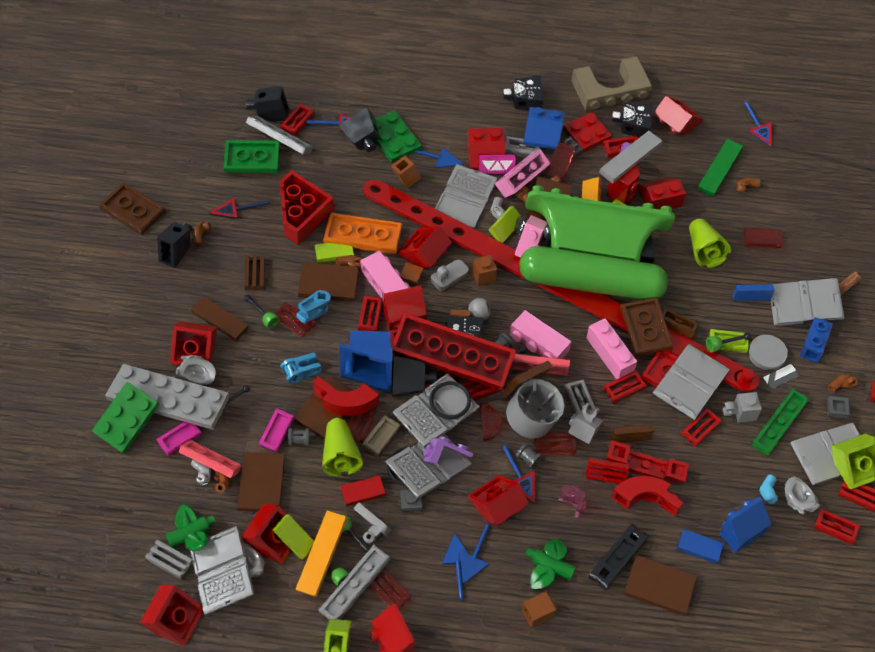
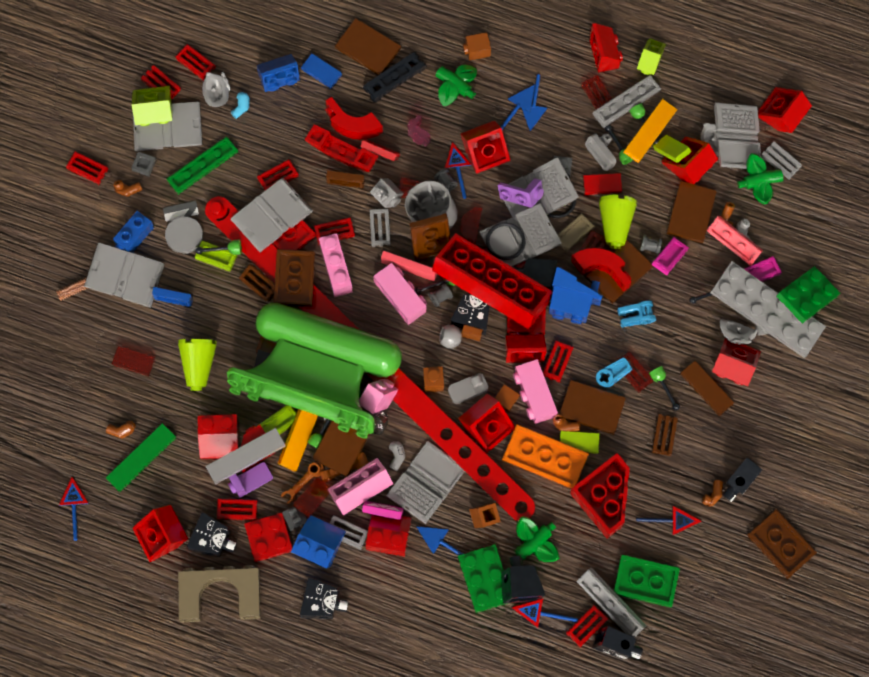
camera: 165 degrees left, 15 degrees up
(355, 168) = (536, 540): none -> green plant
(505, 224) = (395, 431): lime tile -> none
(568, 177) = (304, 480): none -> dark orange brick
(745, 407) = (231, 180): light grey brick -> none

